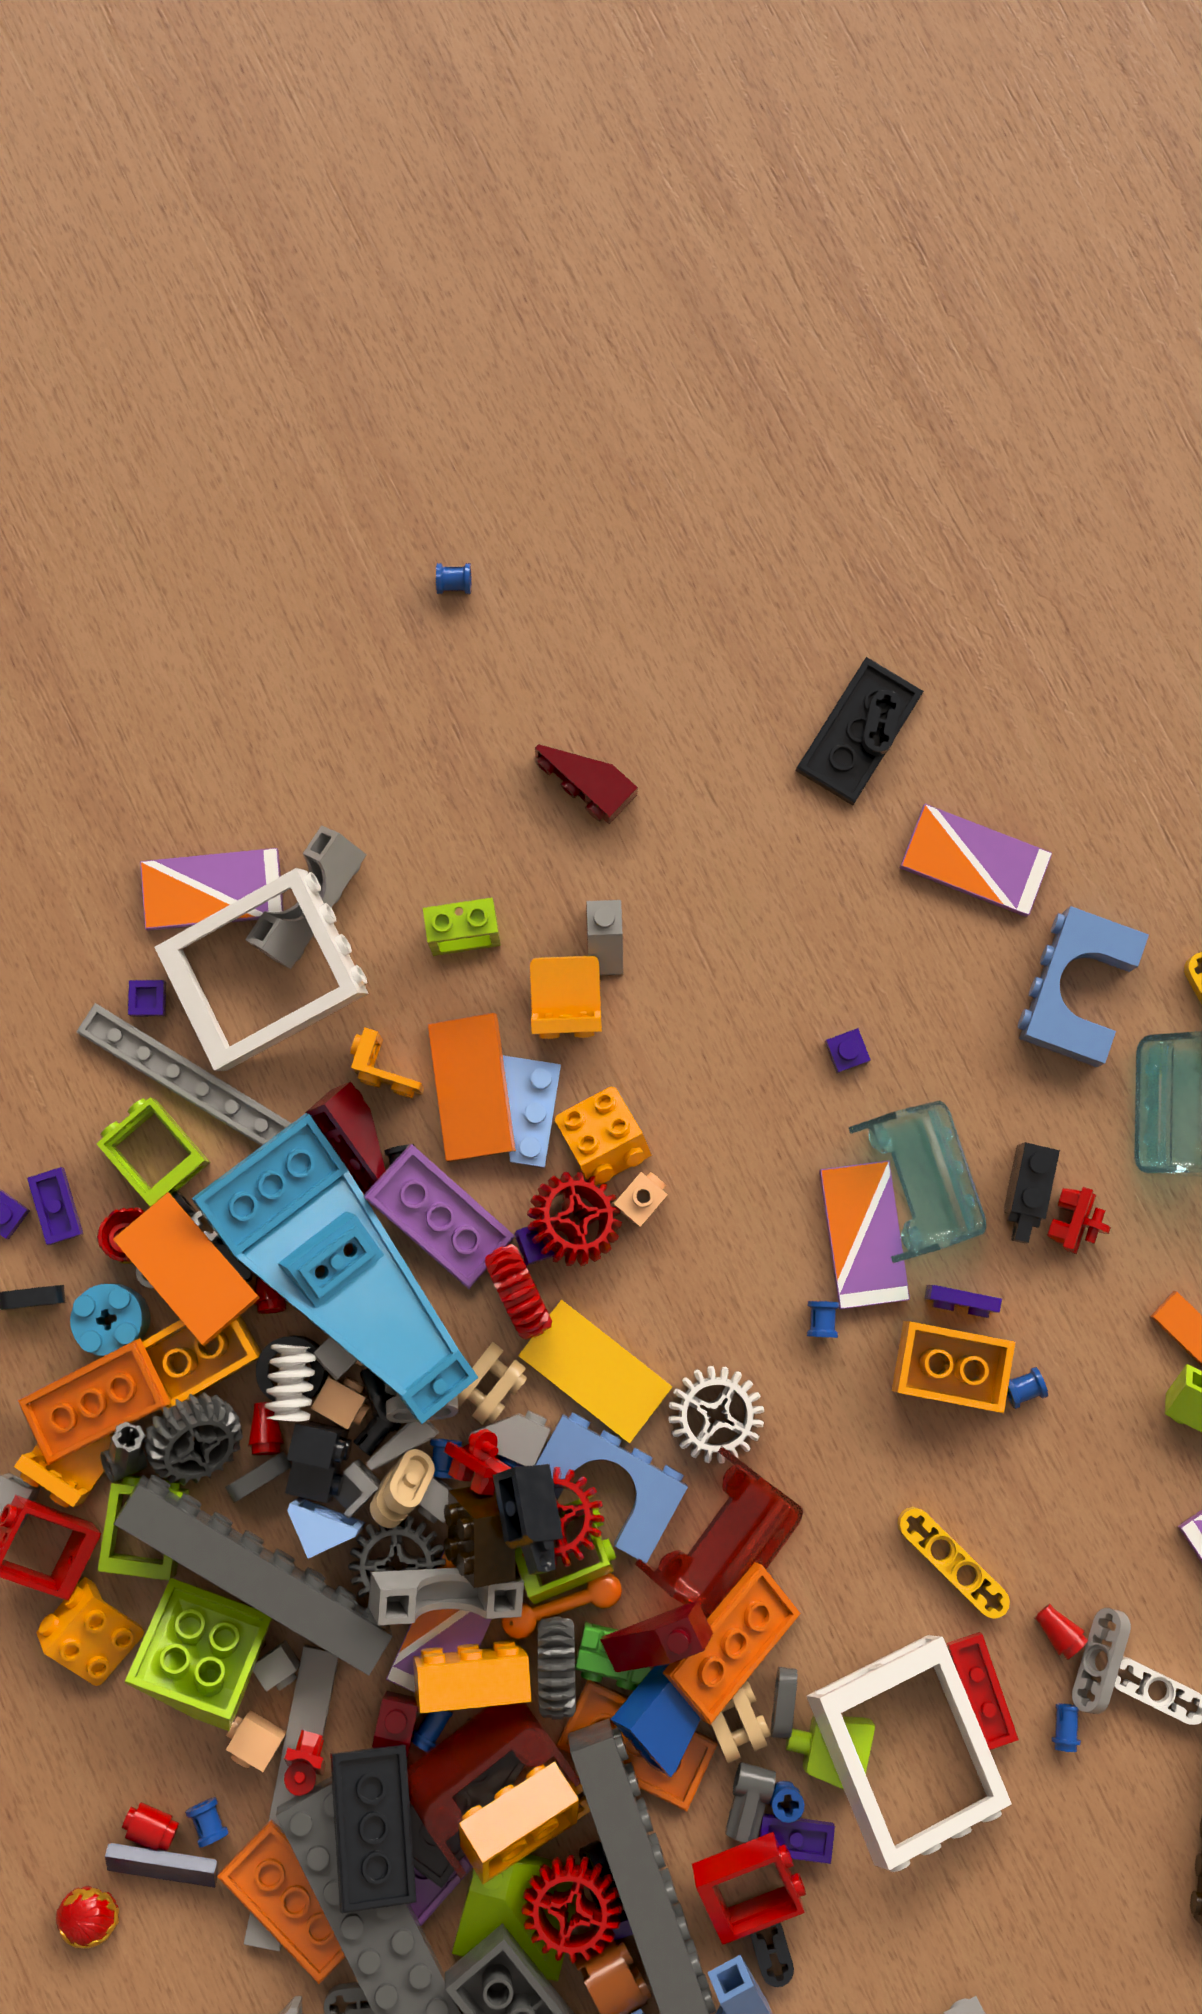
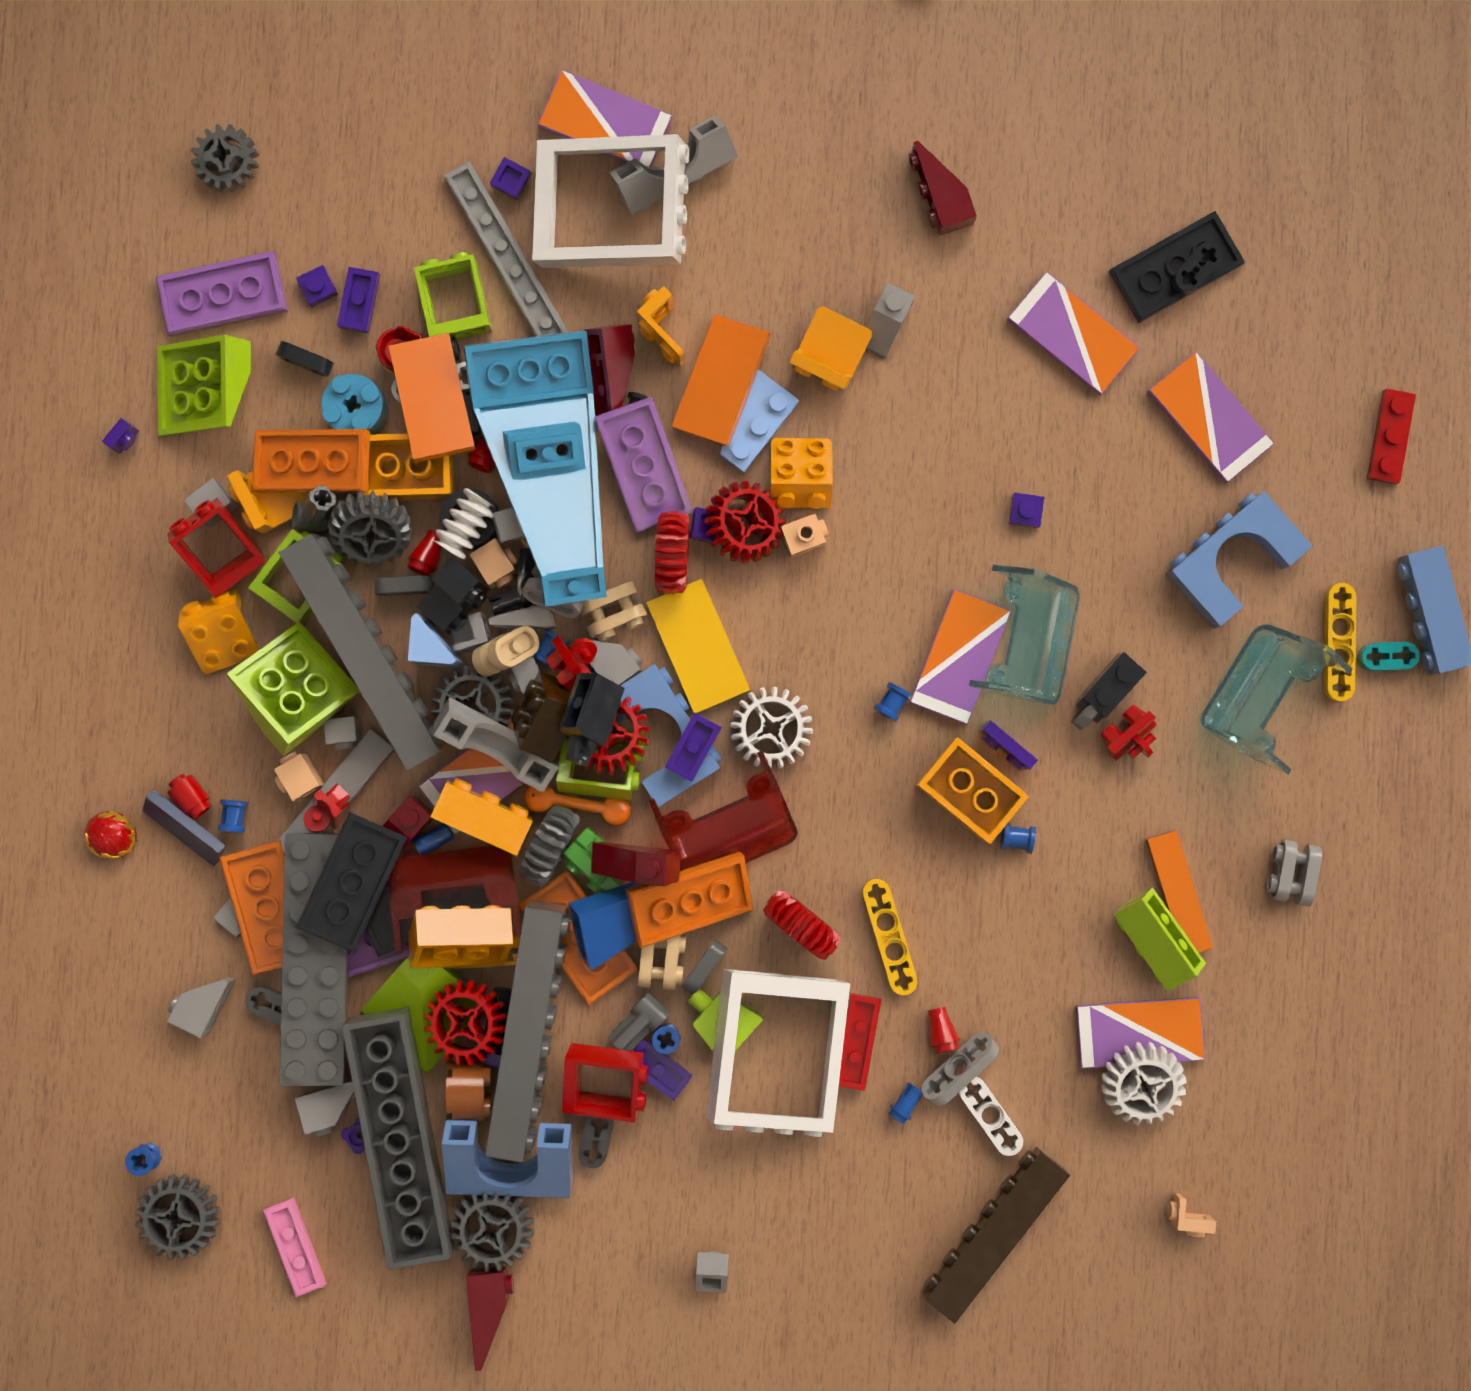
camera: 40 degrees right, 5 degrees up
(454, 933) = (780, 256): lime window -> none
(650, 1482) = (693, 747): none -> dark purple plate
(795, 850) = (1073, 333): none -> tile
(860, 1603) = (802, 924): none -> red gear
(1160, 784) = (1391, 436): none -> red plate

